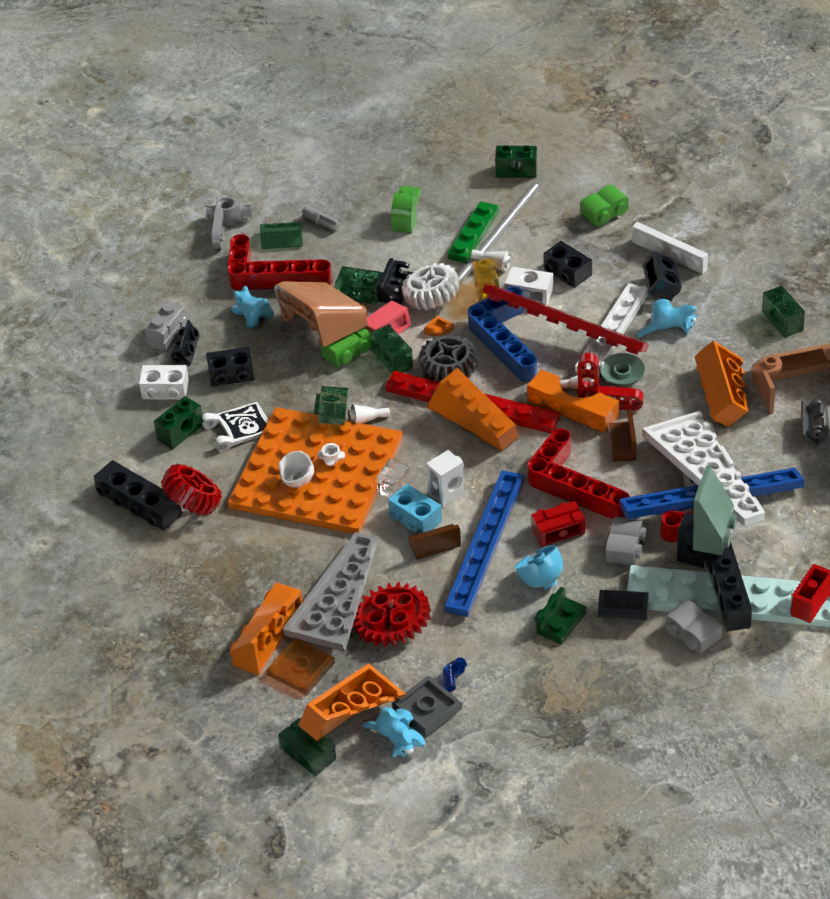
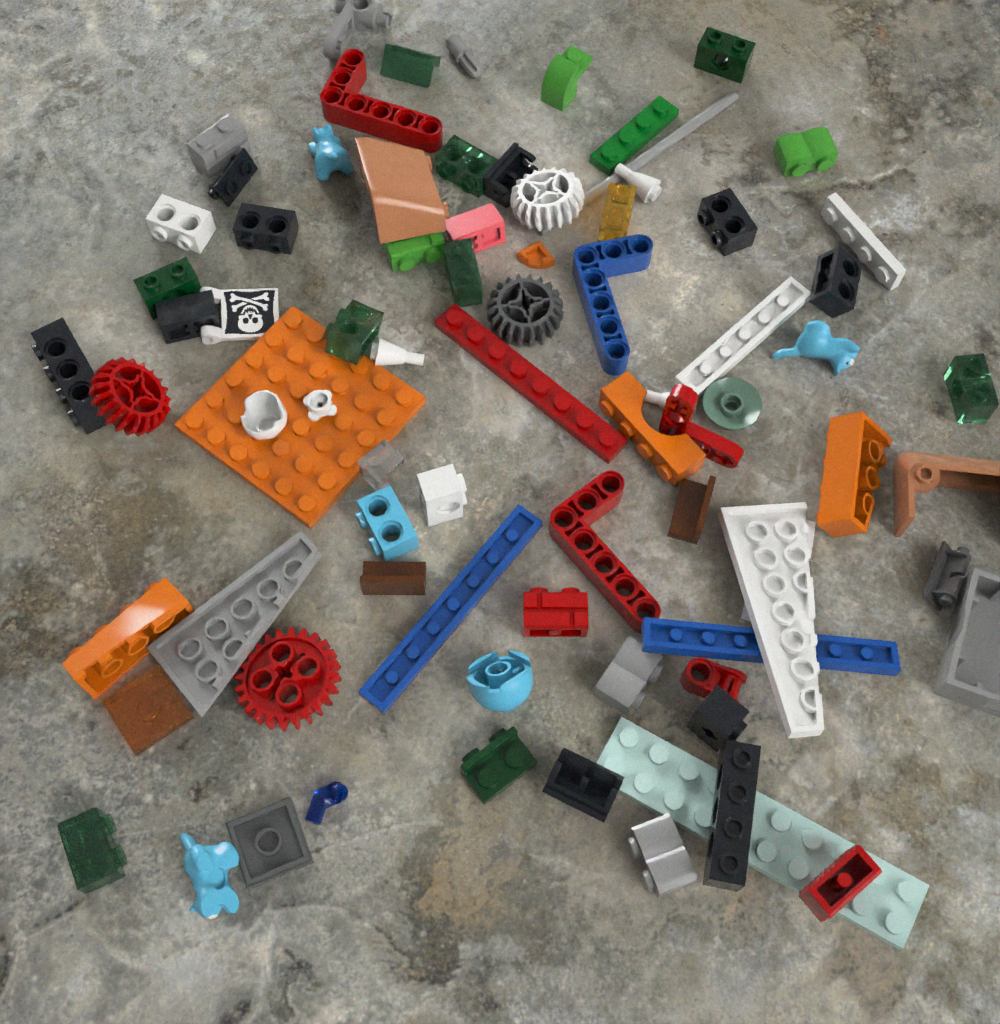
camera: 15 degrees right, 20 degrees up
(201, 435) = (185, 315): none -> black hinge
(346, 699) = (173, 811): orange wedge -> none
(470, 408) = (514, 393): orange wedge -> none
(534, 284) = (671, 237): white brick -> none
(573, 323) = (695, 314): red plate -> none
(712, 515) = (746, 729): sand green slope -> none

